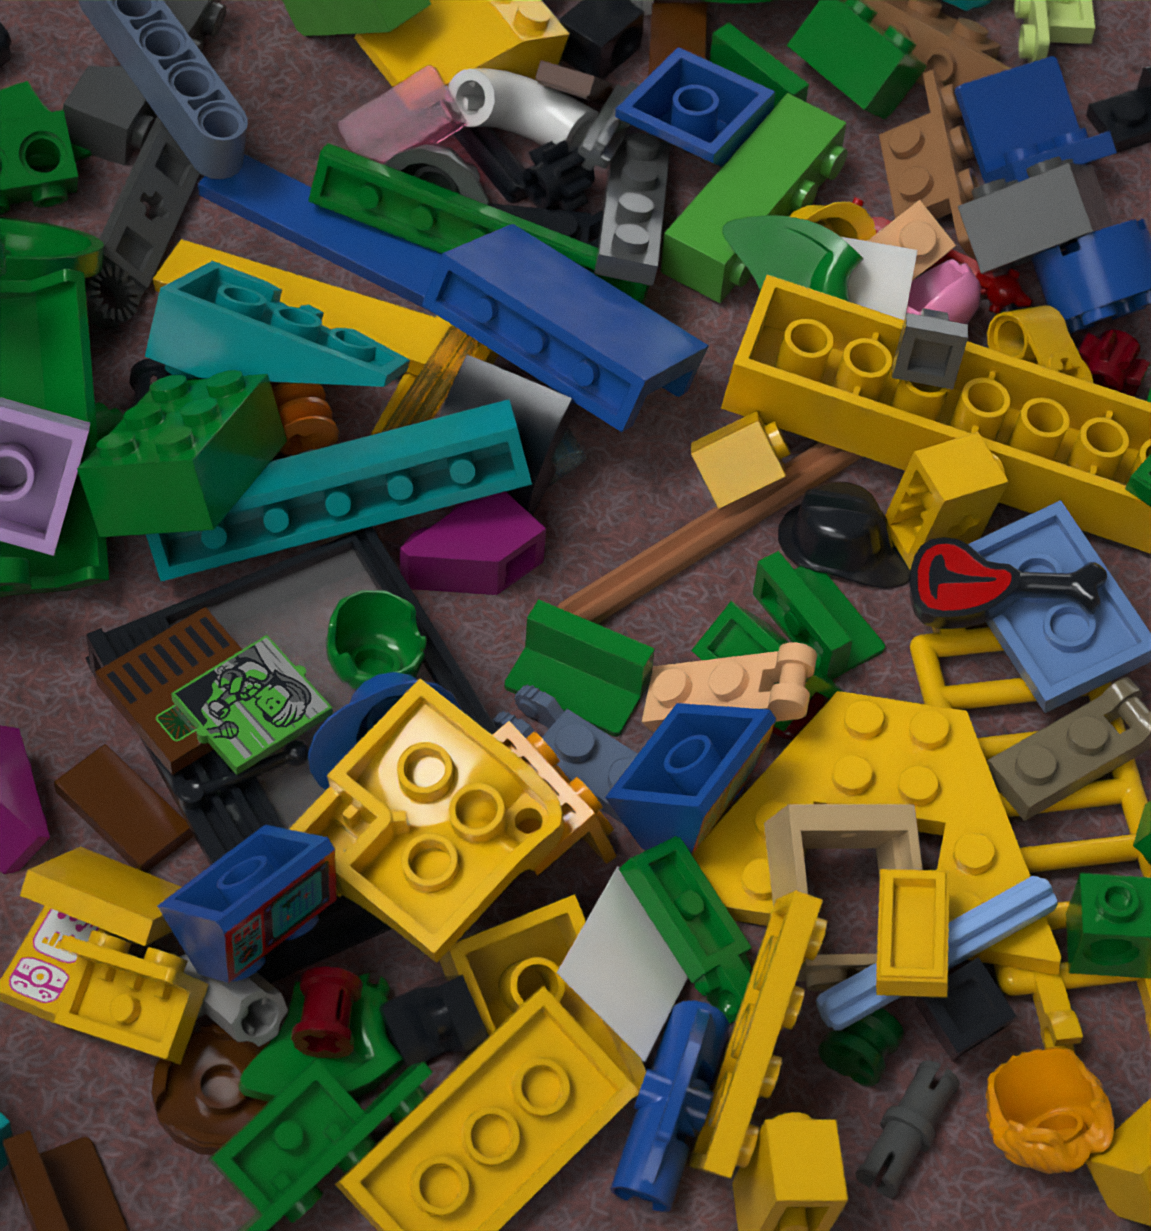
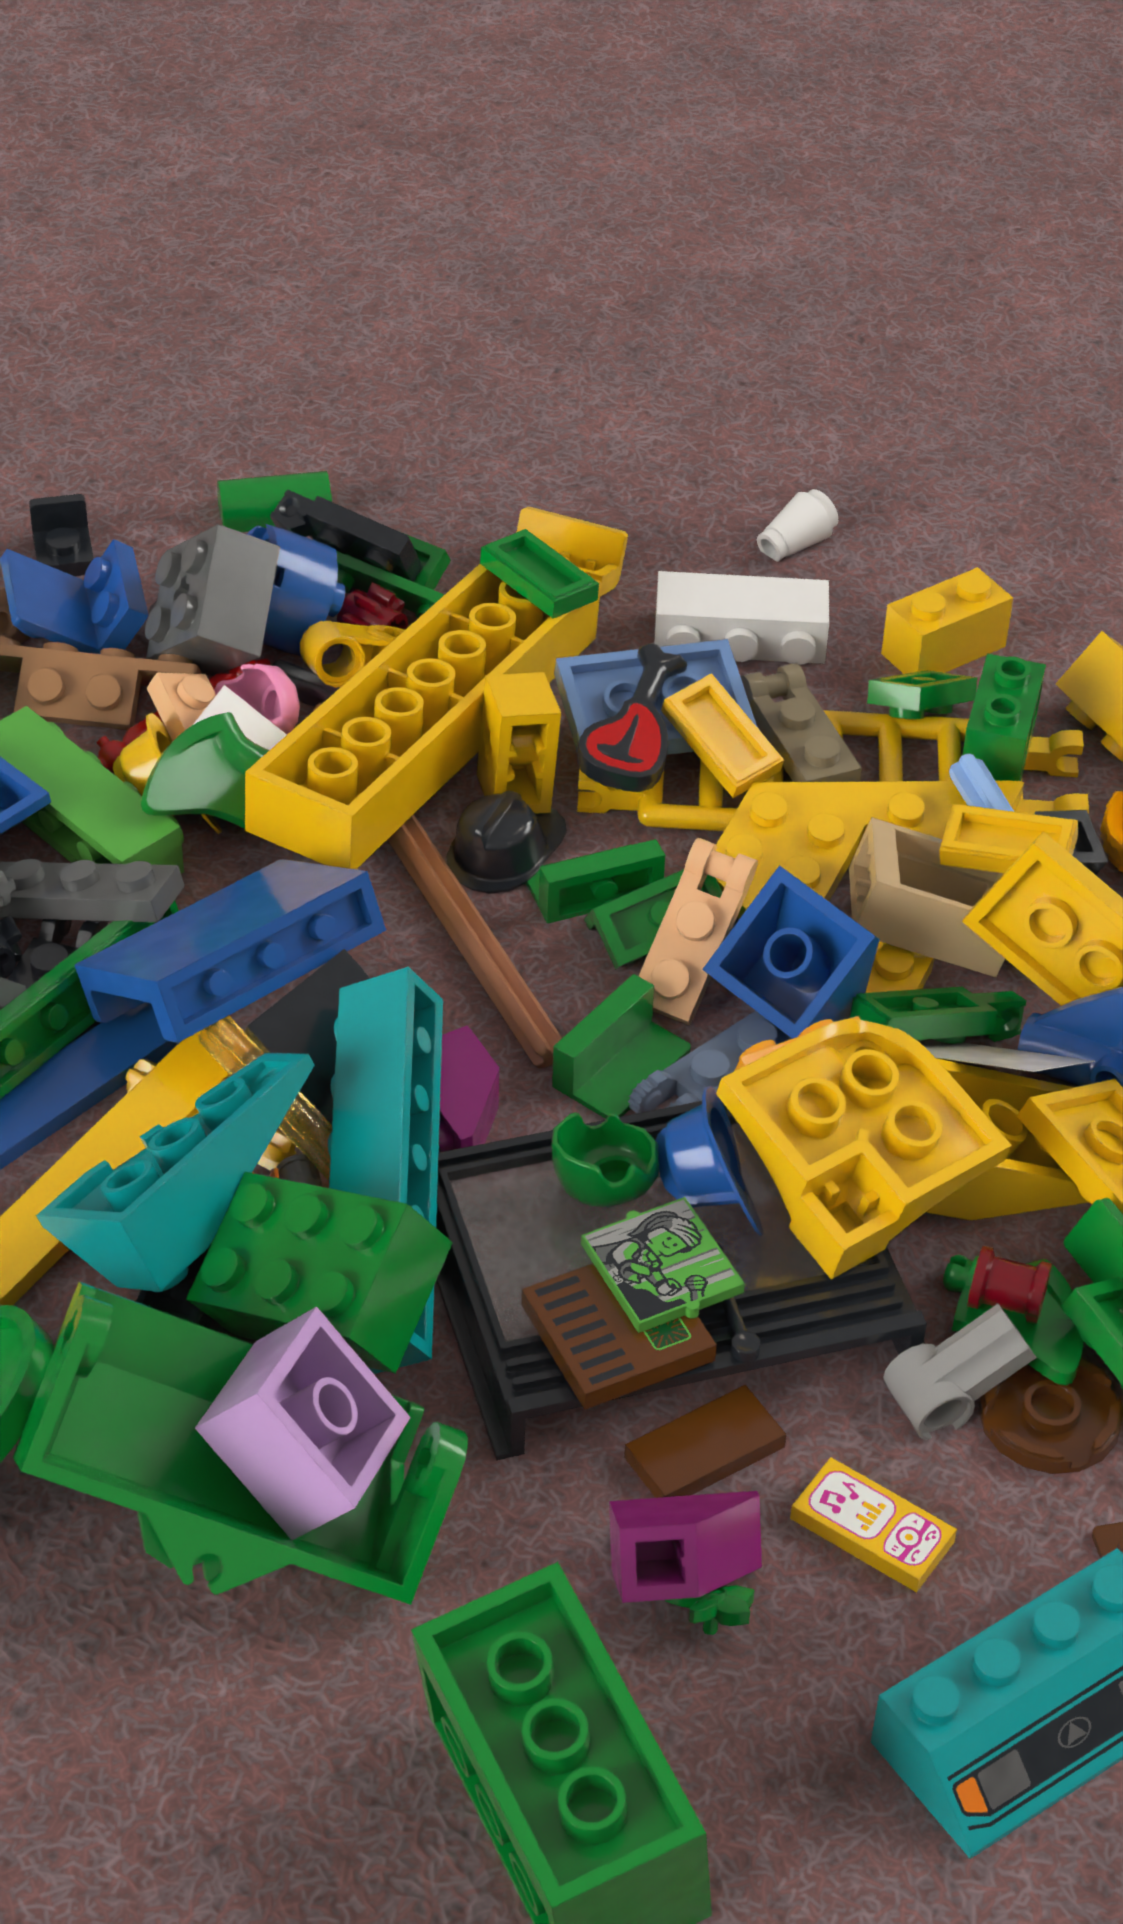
camera: 75 degrees left, 10 degrees down
(102, 894) = (842, 1443): yellow tile -> none
(128, 998) = (965, 1447): yellow bracket -> none
(252, 901) = (932, 1269): blue slope -> none
(433, 1020) = (1012, 1206): black bracket -> none
(740, 458) = (417, 874): yellow brick -> none
(930, 349) = (389, 673): dark grey tile -> none
(1013, 666) = (722, 735): none -> yellow tile

